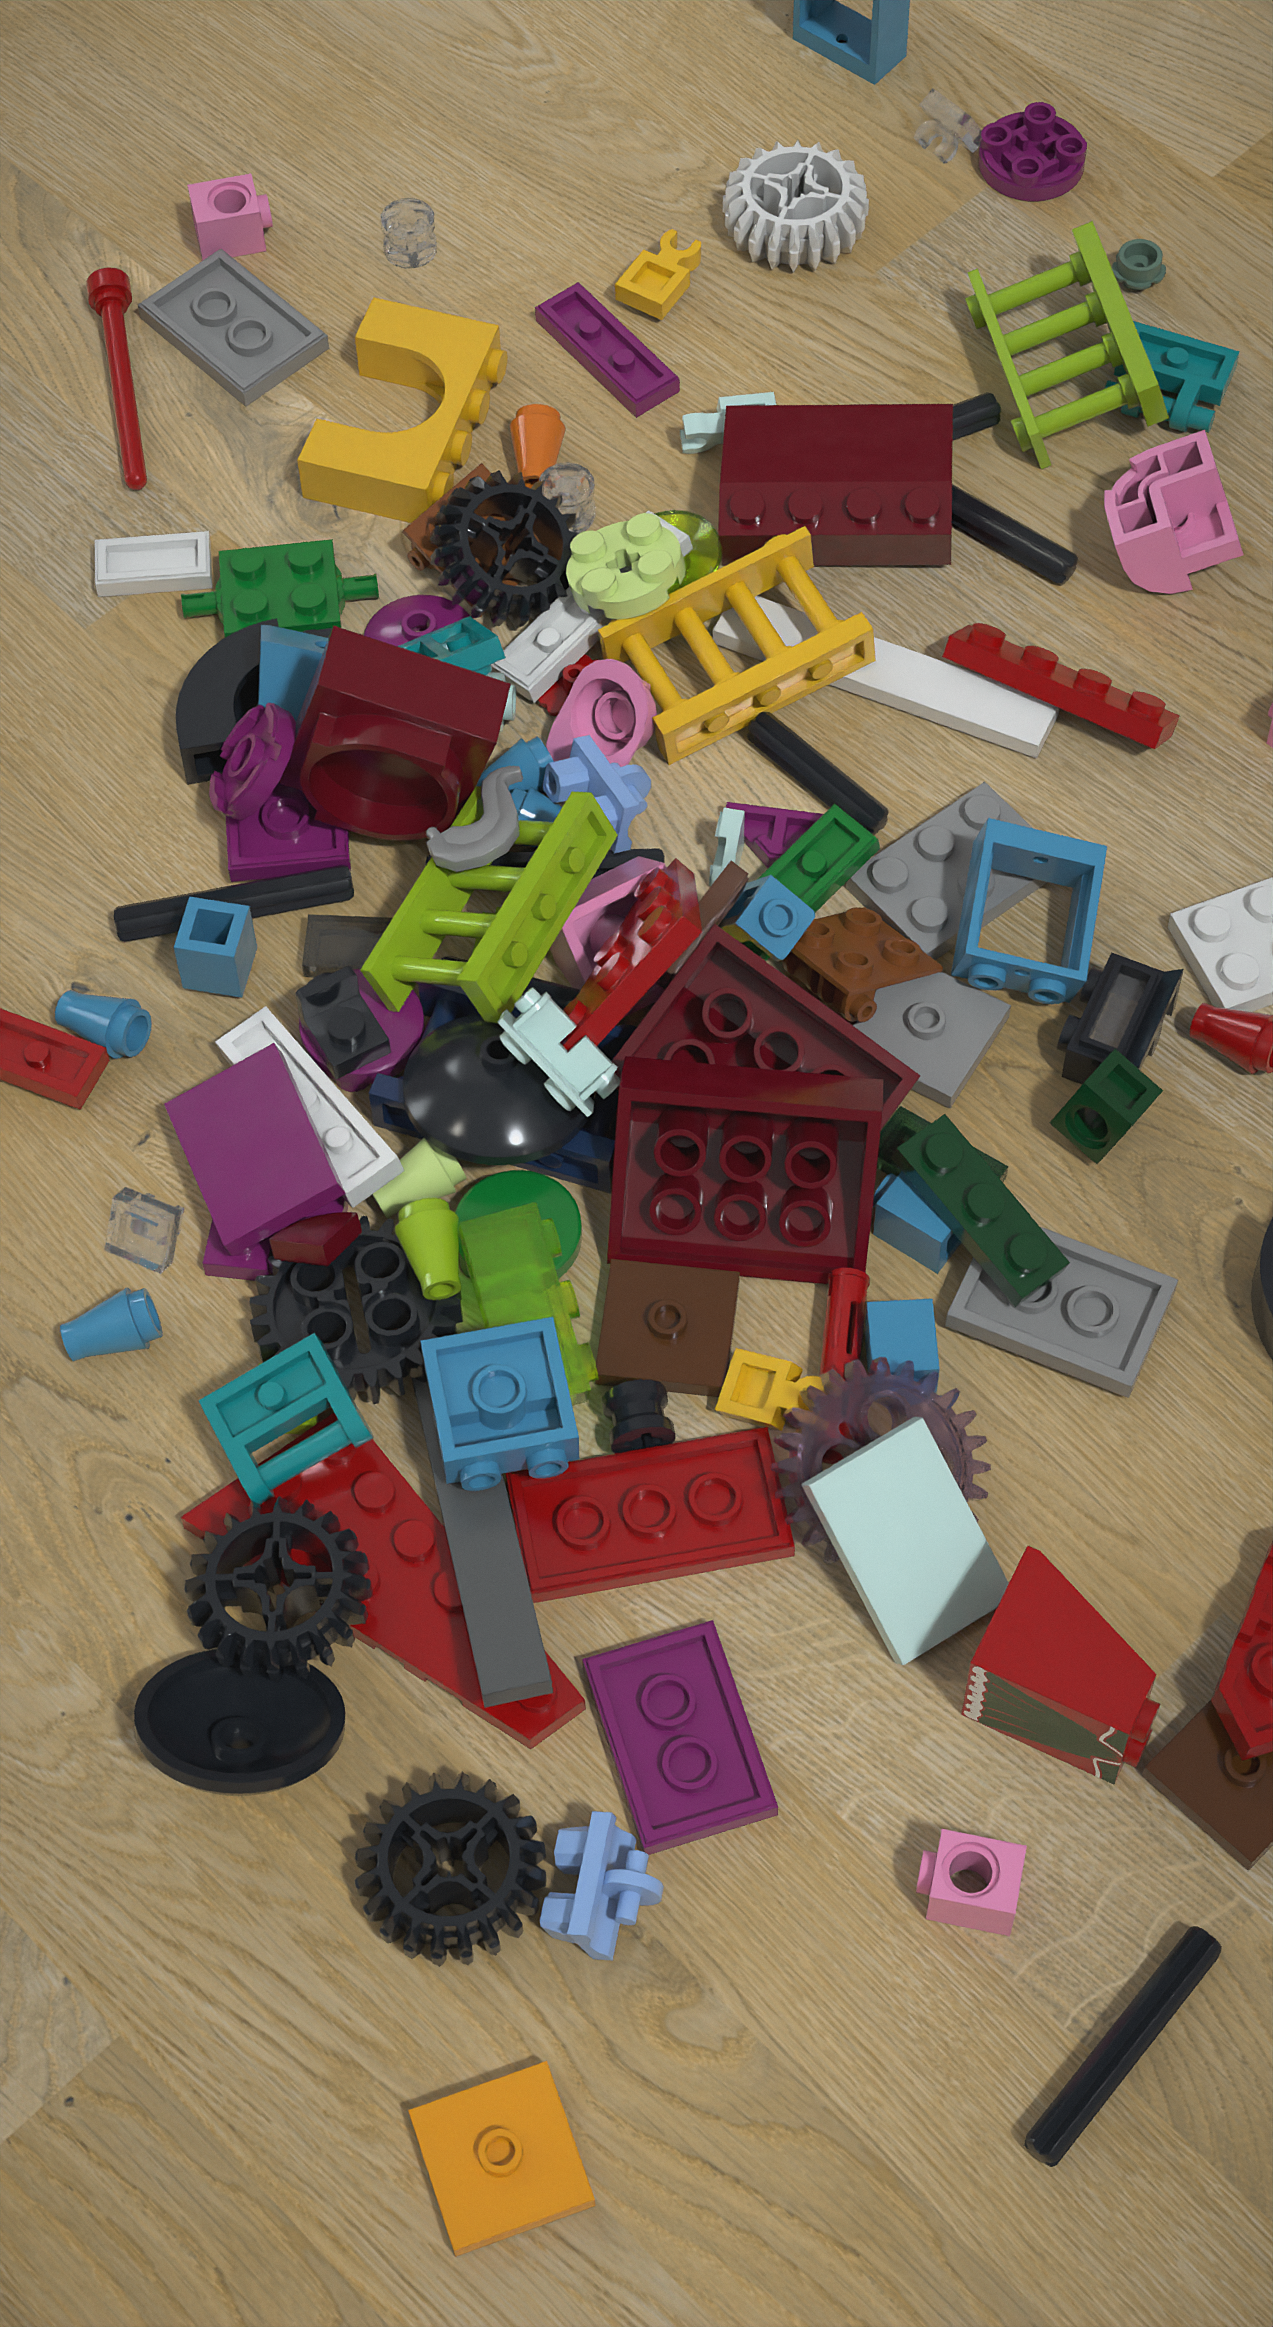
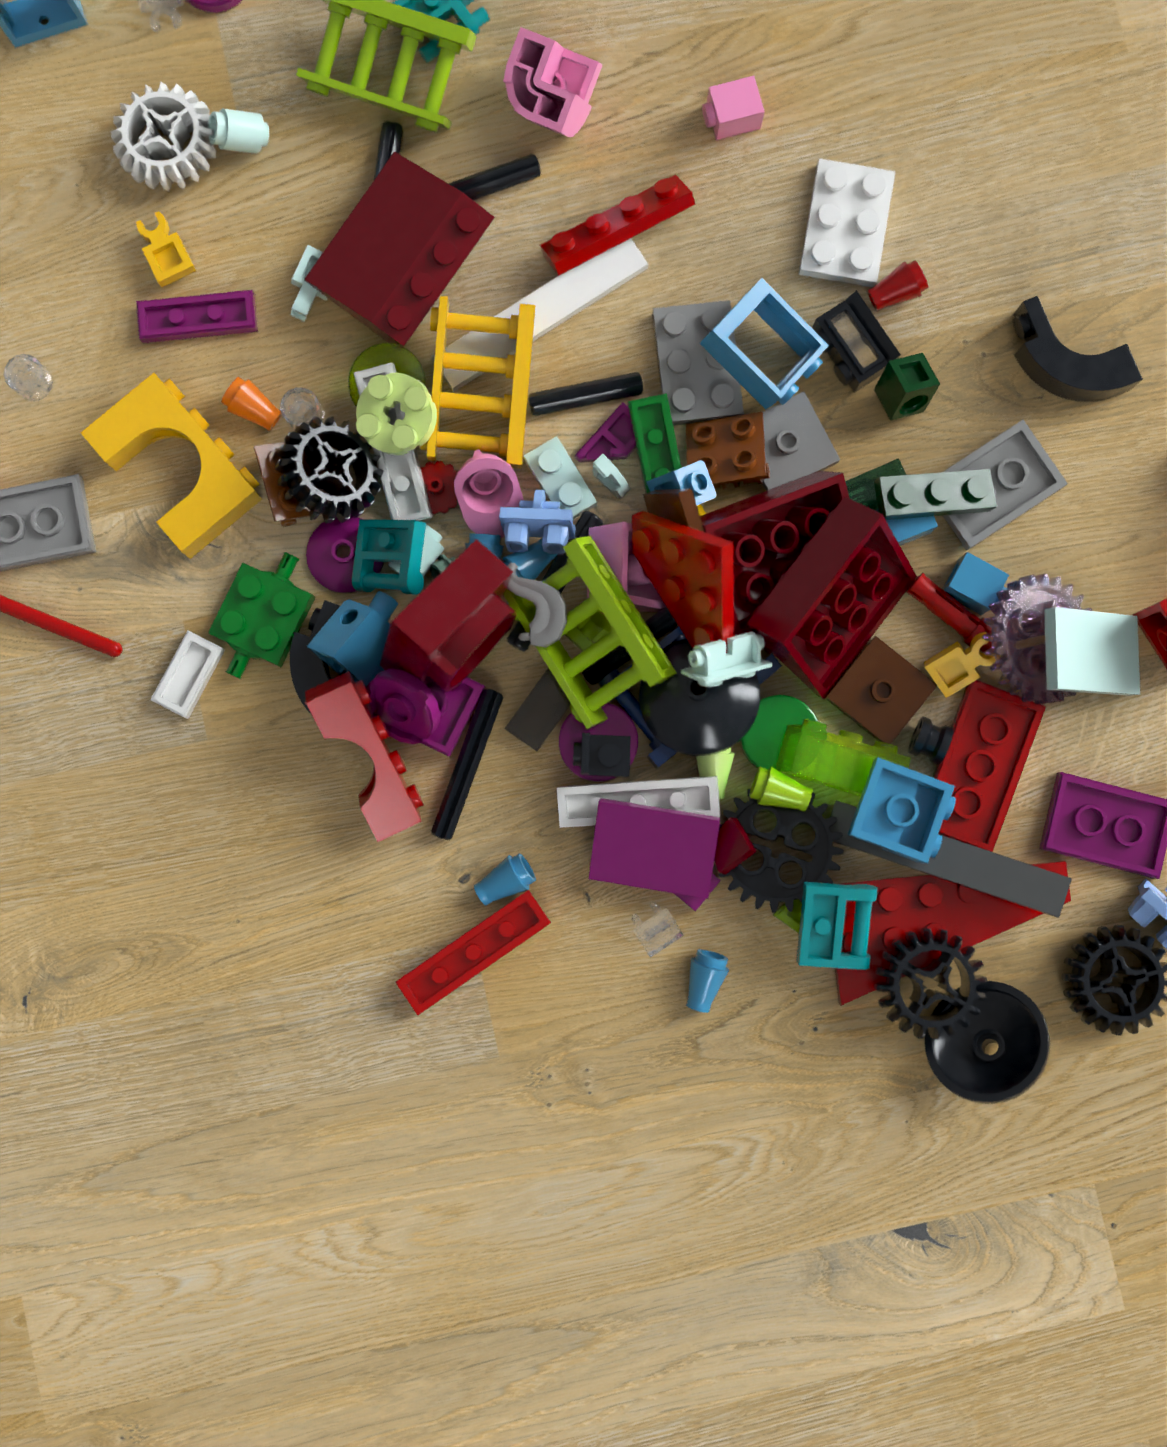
camera: 60 degrees left, 25 degrees up
(132, 825) = (343, 714): none -> arch
(215, 947) = (503, 794): dark azure brick -> none
(684, 806) = (560, 477): none -> light aqua plate
(857, 261) = (238, 130): none -> light aqua brick

